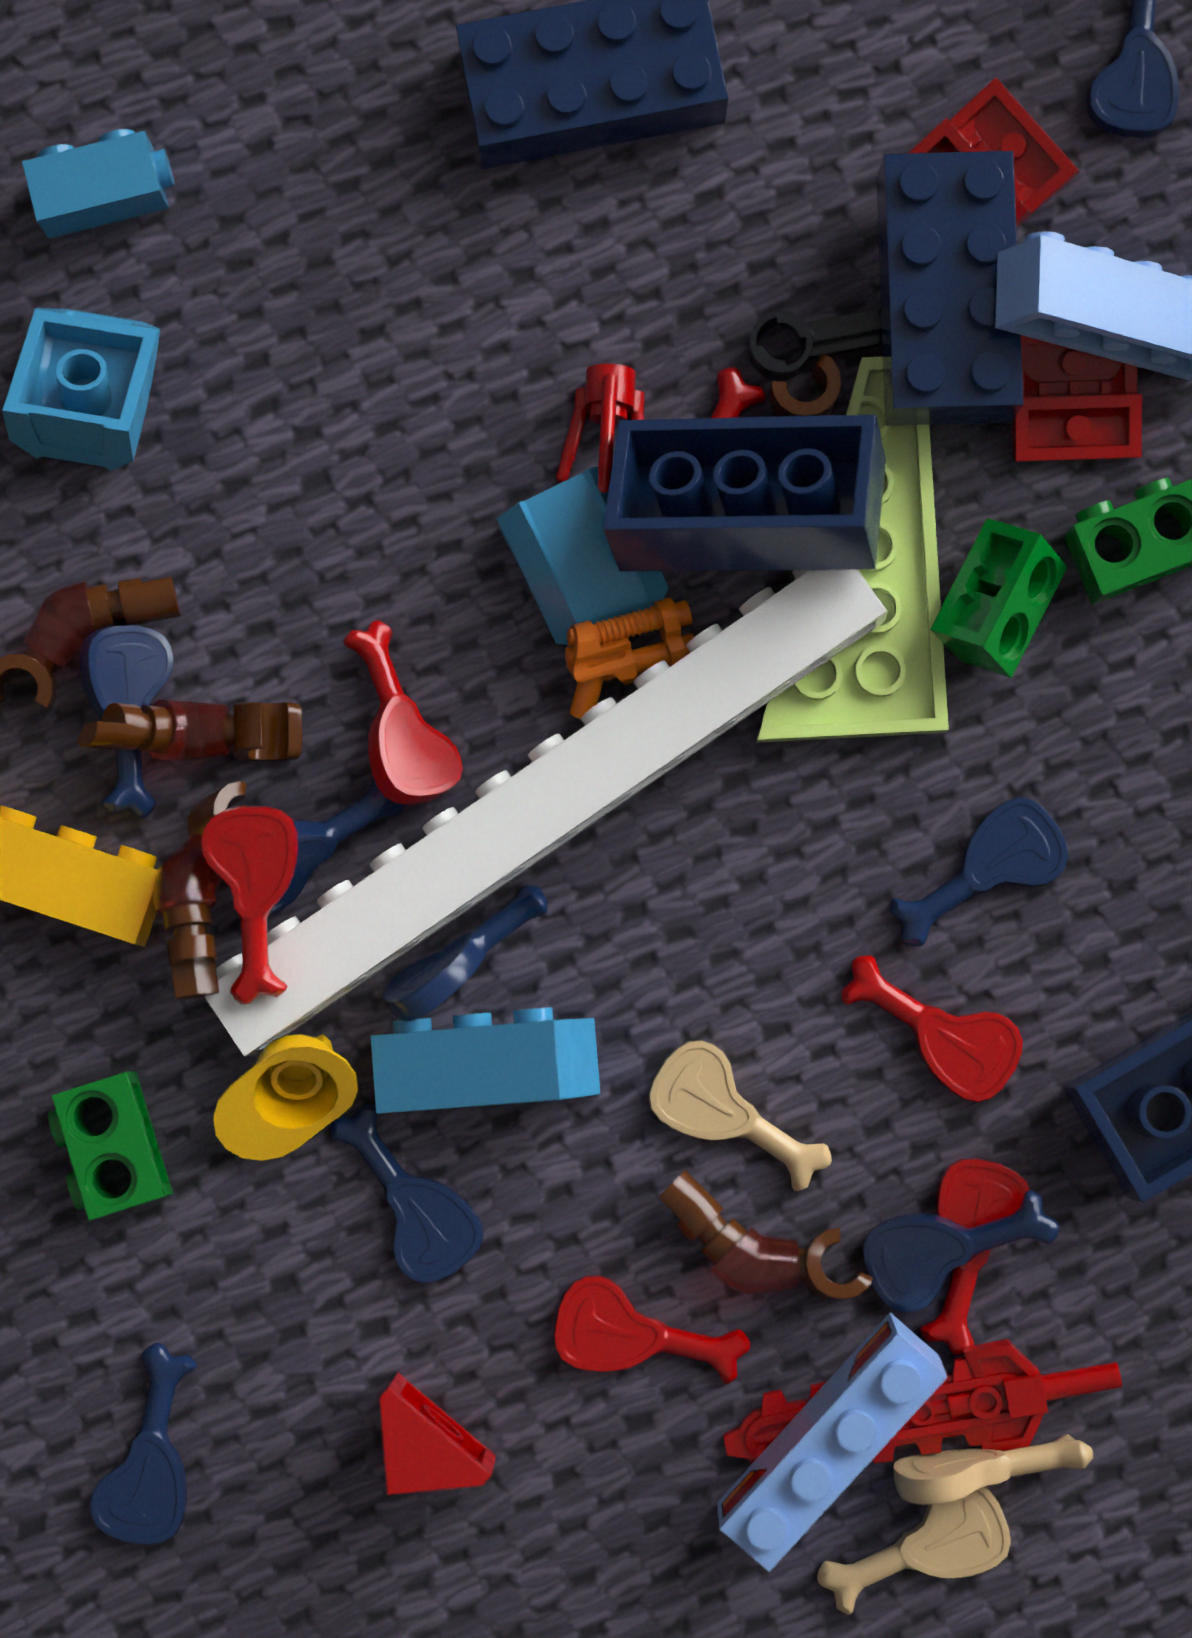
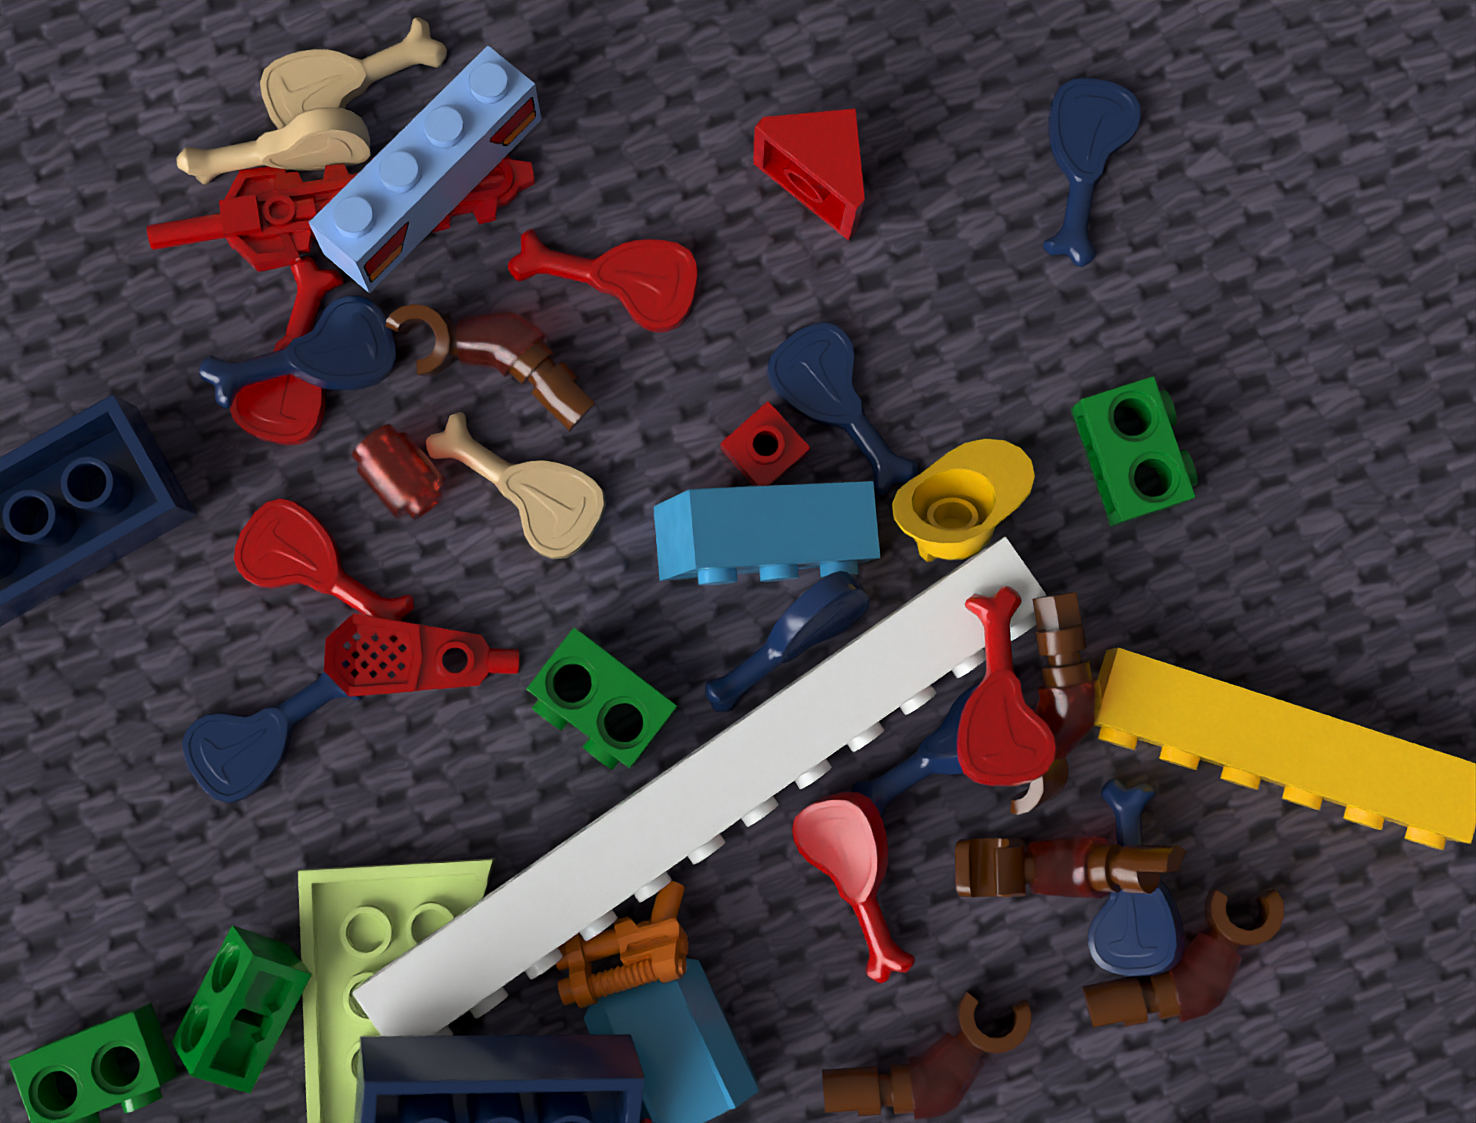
camera: 175 degrees right, 0 degrees up
(330, 526) = (930, 1082): none -> reddish brown piece
(510, 1151) = (765, 469): none -> red plate
(640, 909) = (610, 687): none -> green brick
(831, 940) = (421, 658): none -> red piece
(857, 1126) = (399, 472): none -> clear red brick

